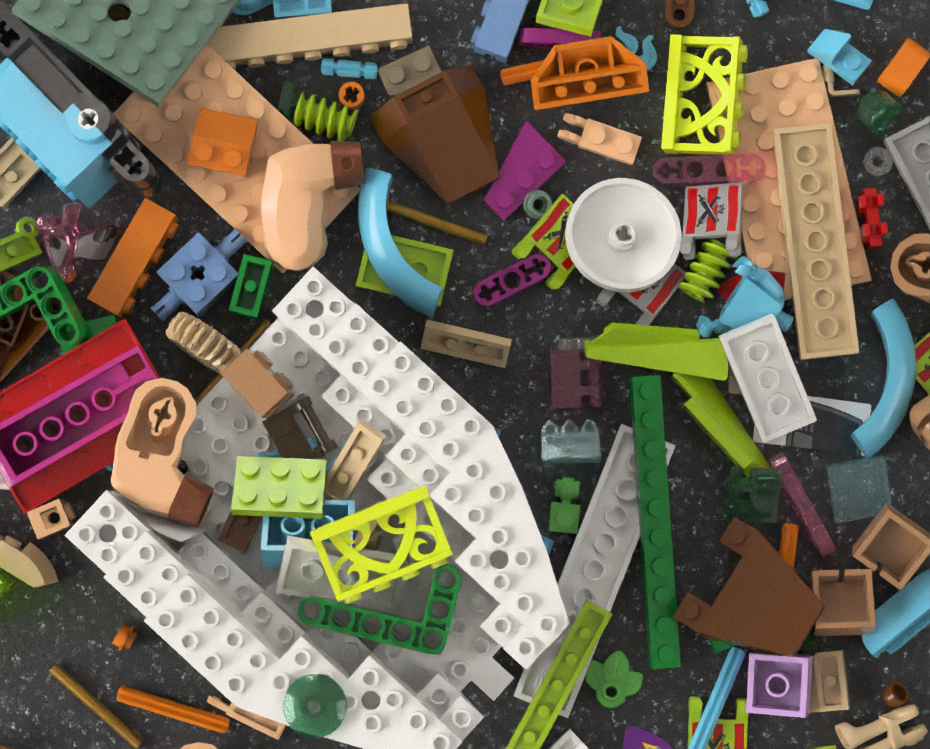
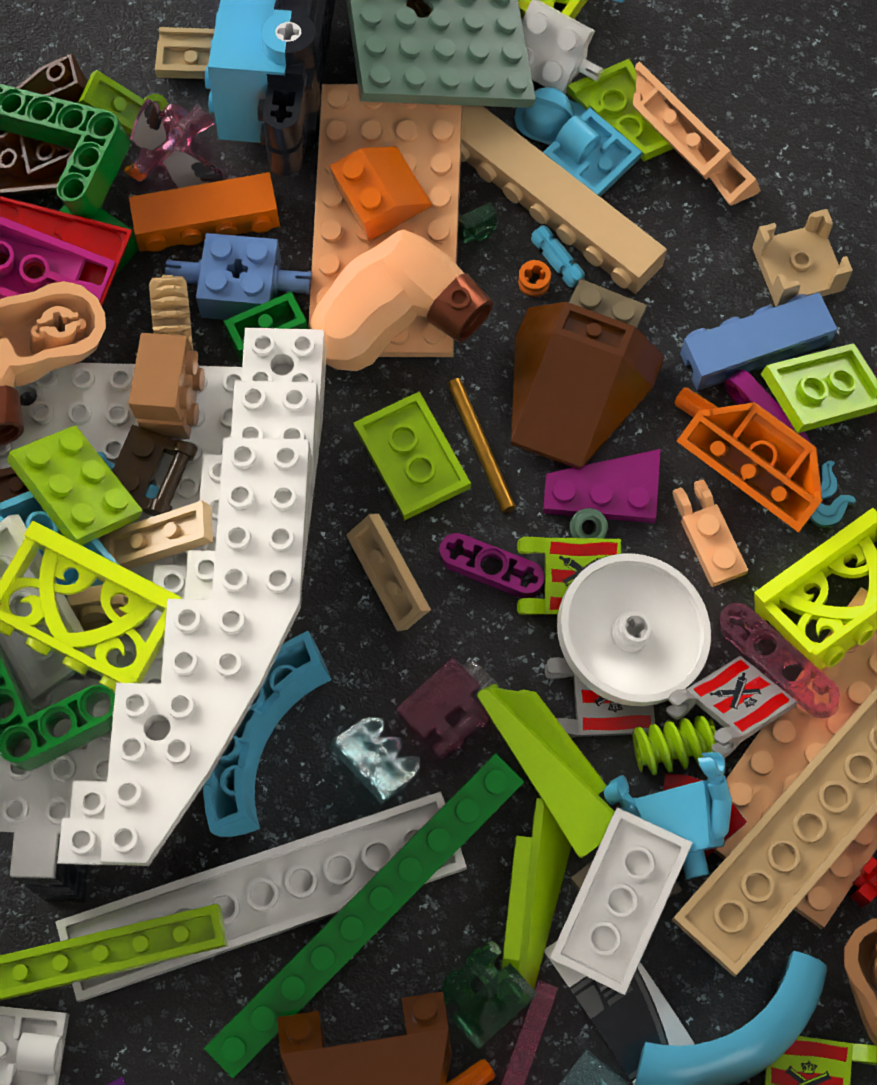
camera: 50 degrees right, 15 degrees down
(324, 117) = (489, 265): lime piece -> none
(382, 251) = (409, 415): medium azure brick -> none
(563, 515) = (296, 817): bright green plate -> none
(613, 675) = (165, 1012): bright green plate -> none

